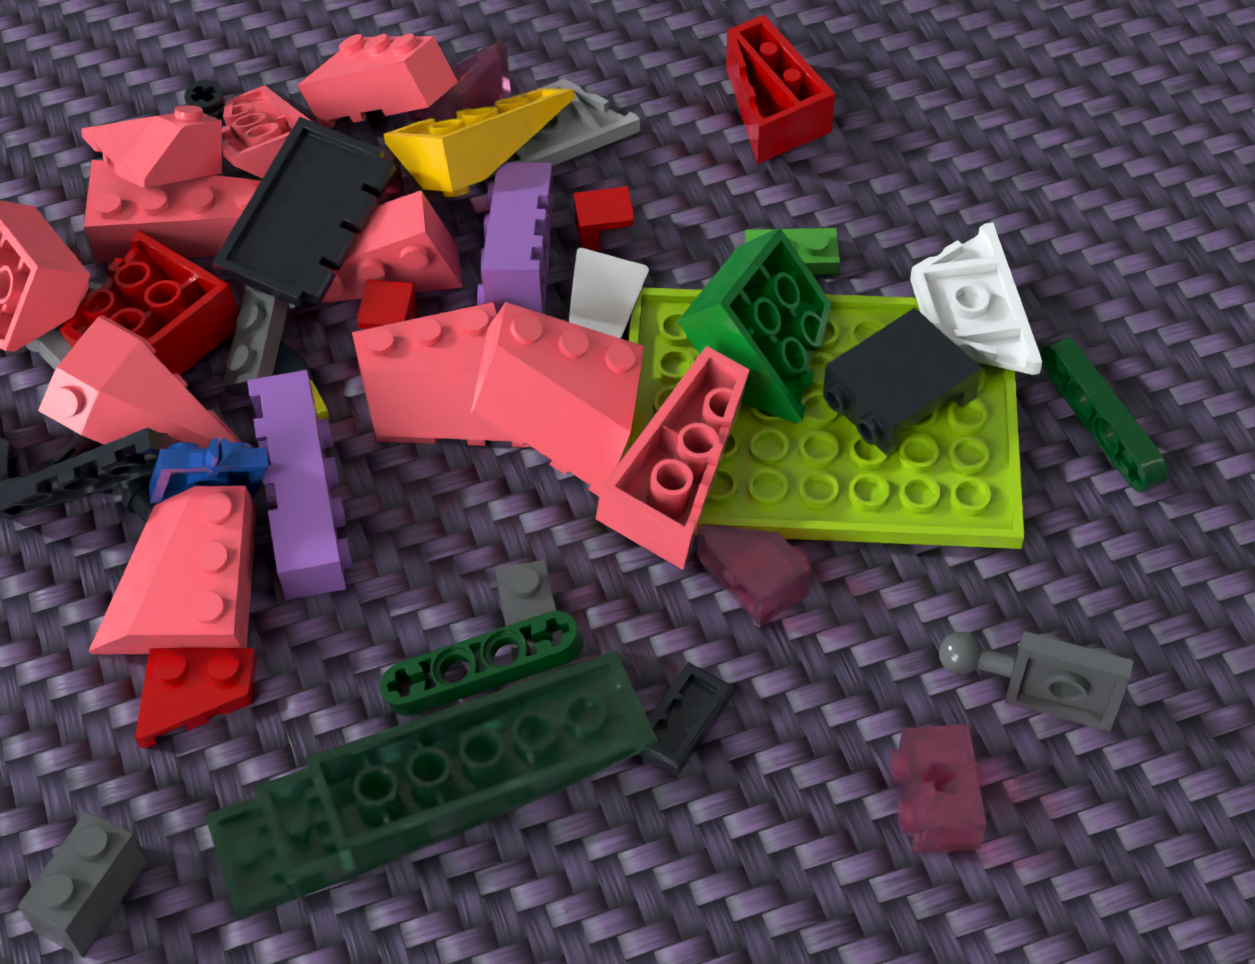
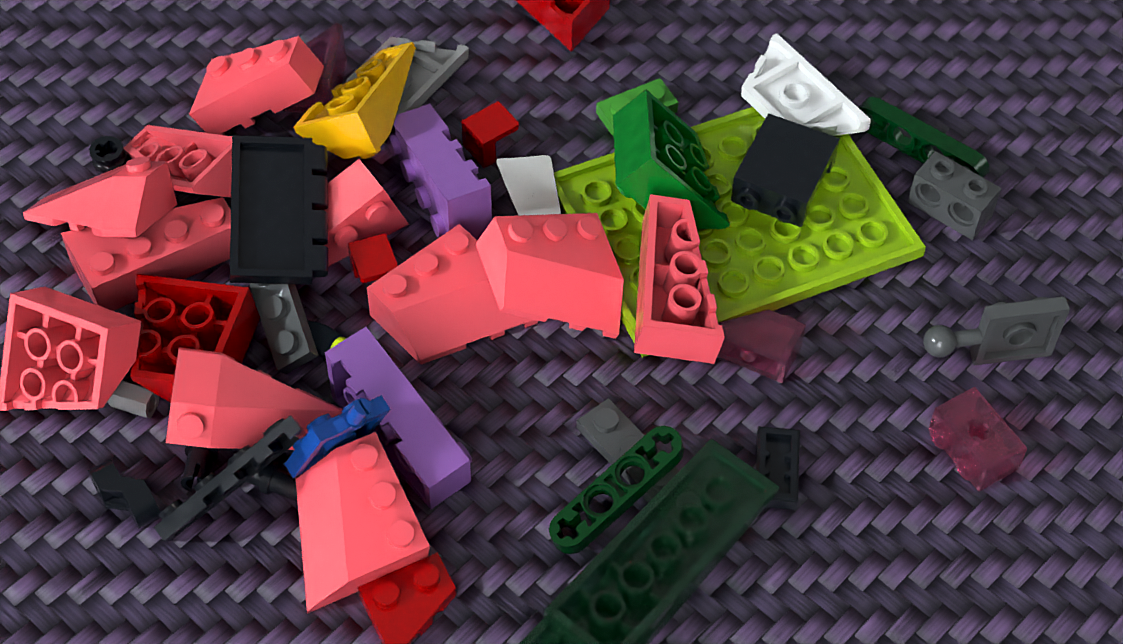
camera: 30 degrees left, 0 degrees up
(1099, 491) = (954, 195): none -> dark grey brick

